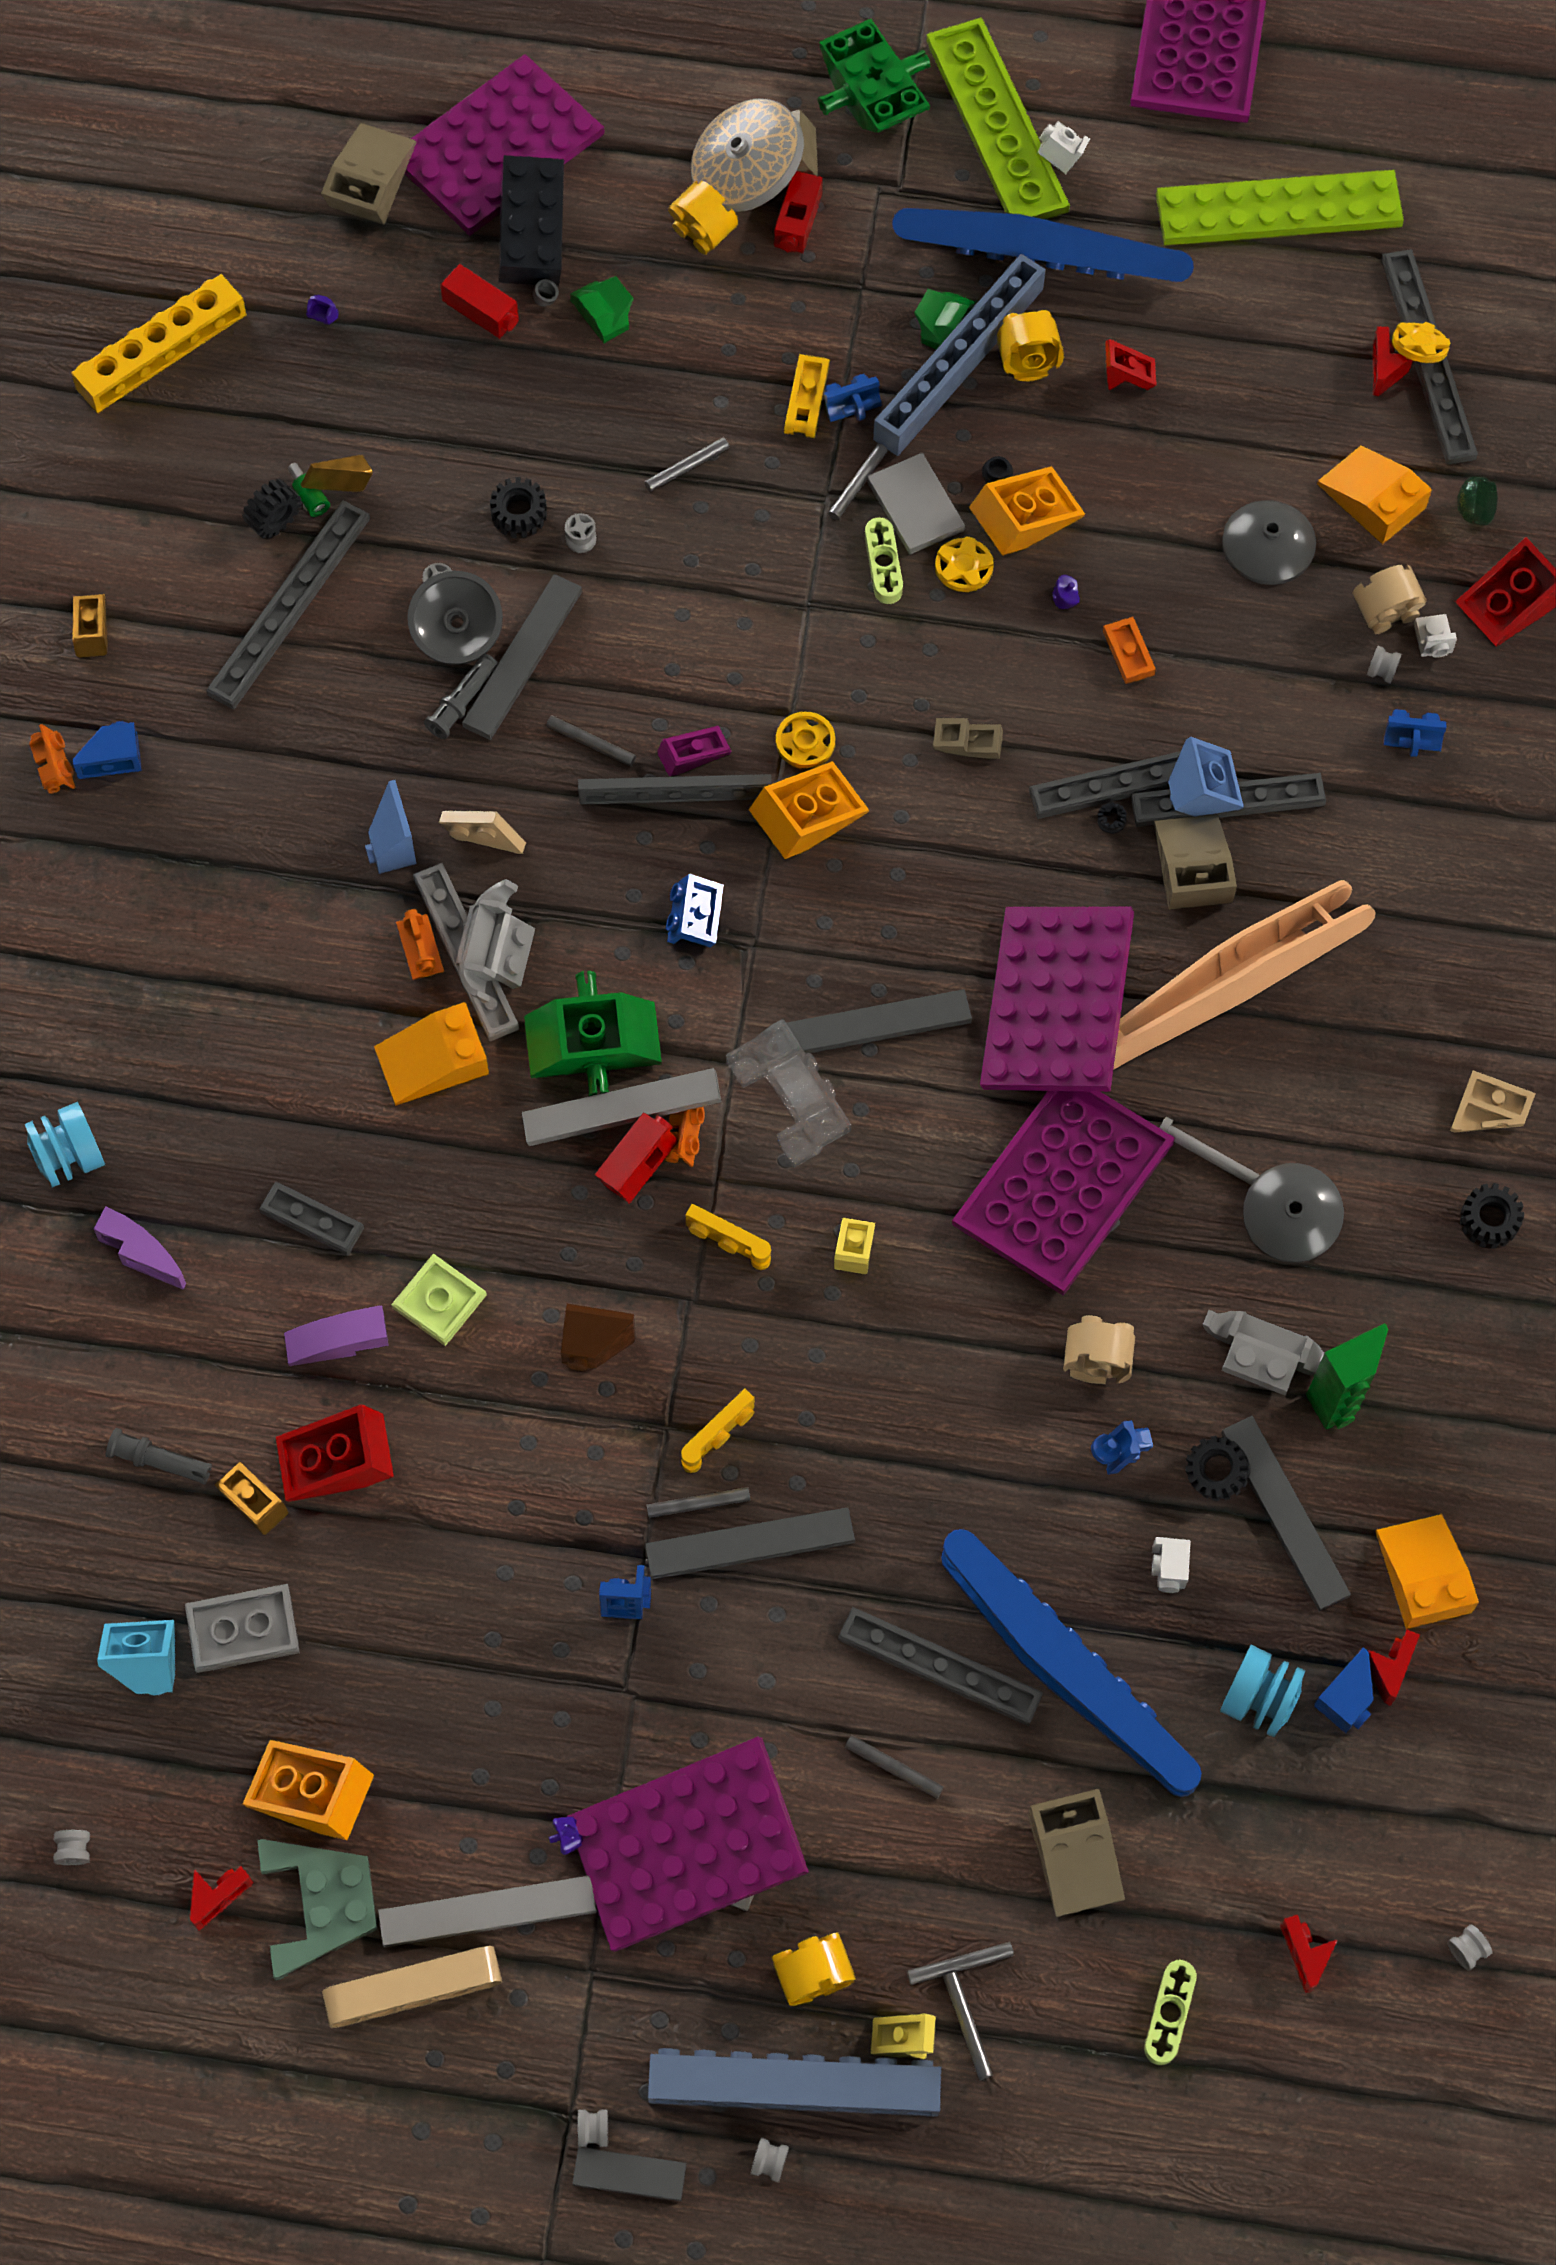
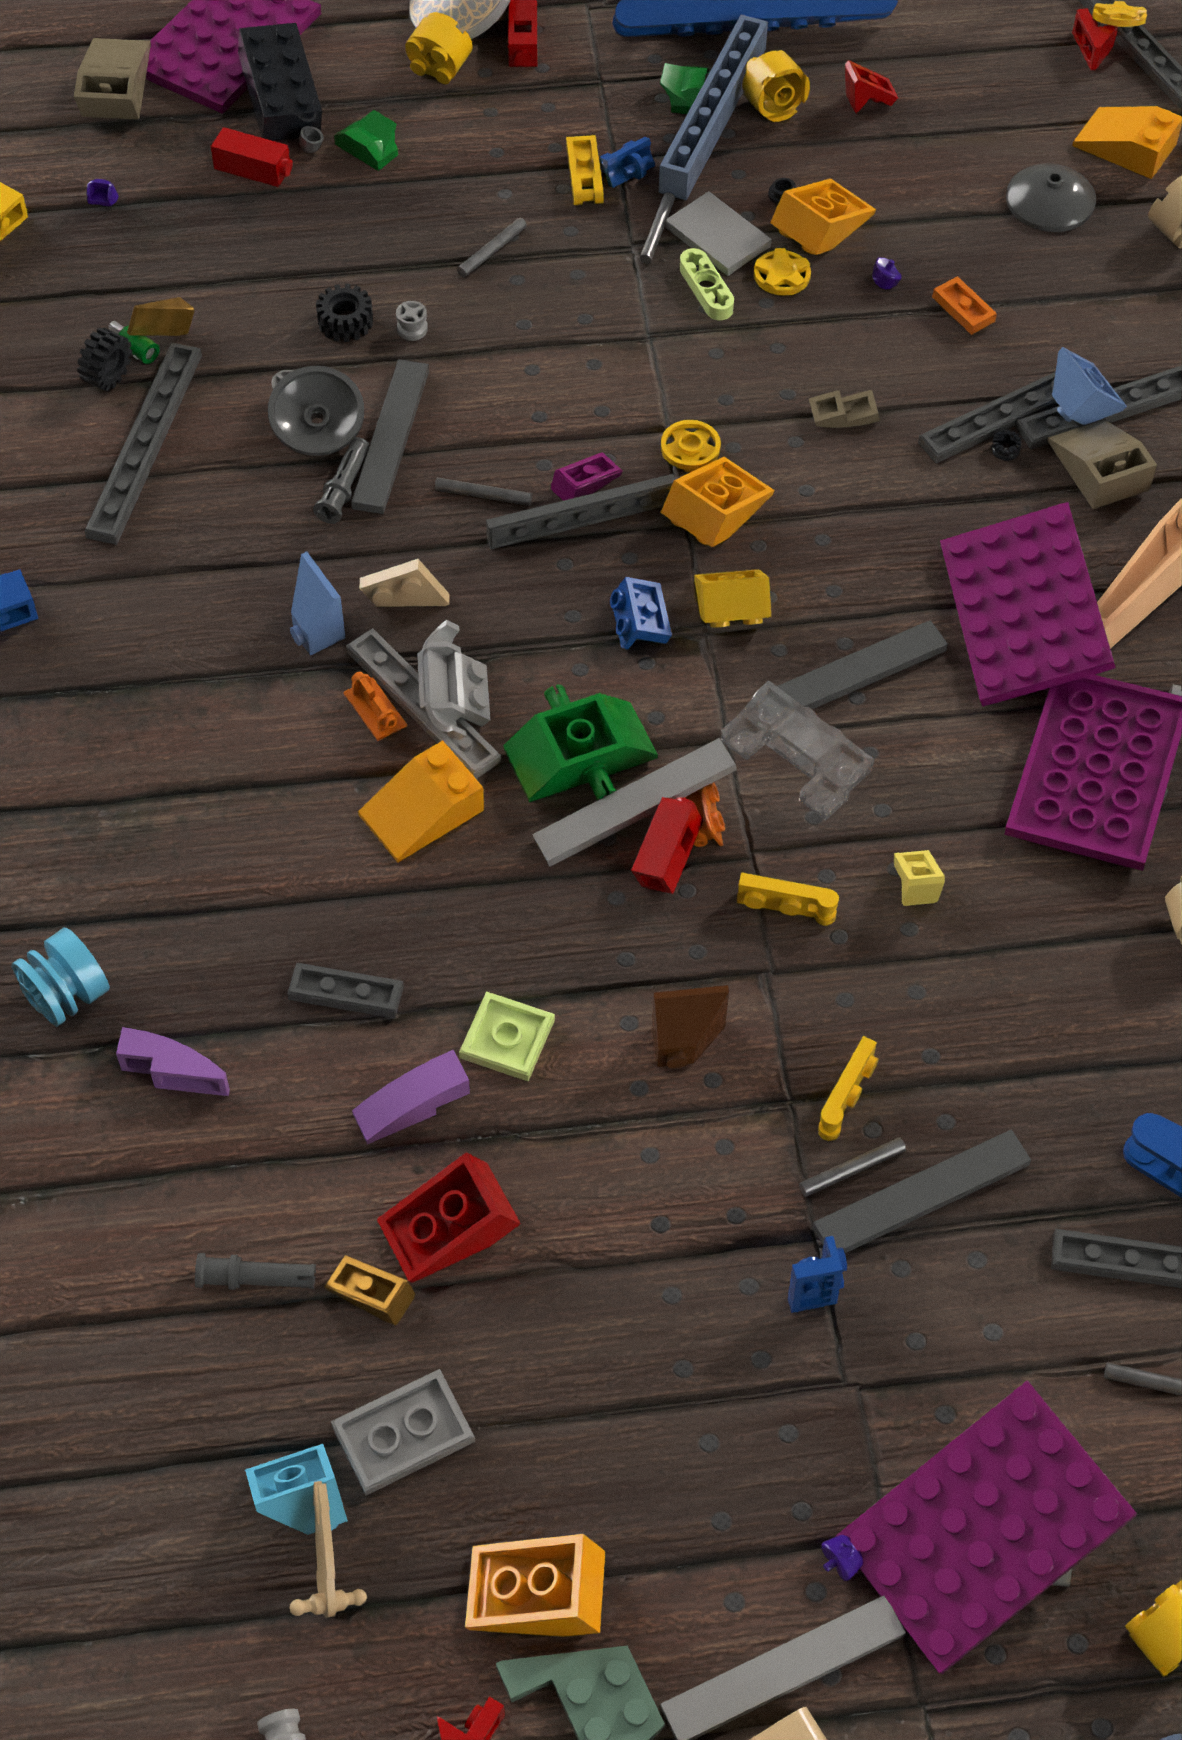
camera: 15 degrees left, 10 degrees down
(139, 1751) = (327, 1600): none -> tan piece
(786, 916) = (733, 597): none -> yellow slope

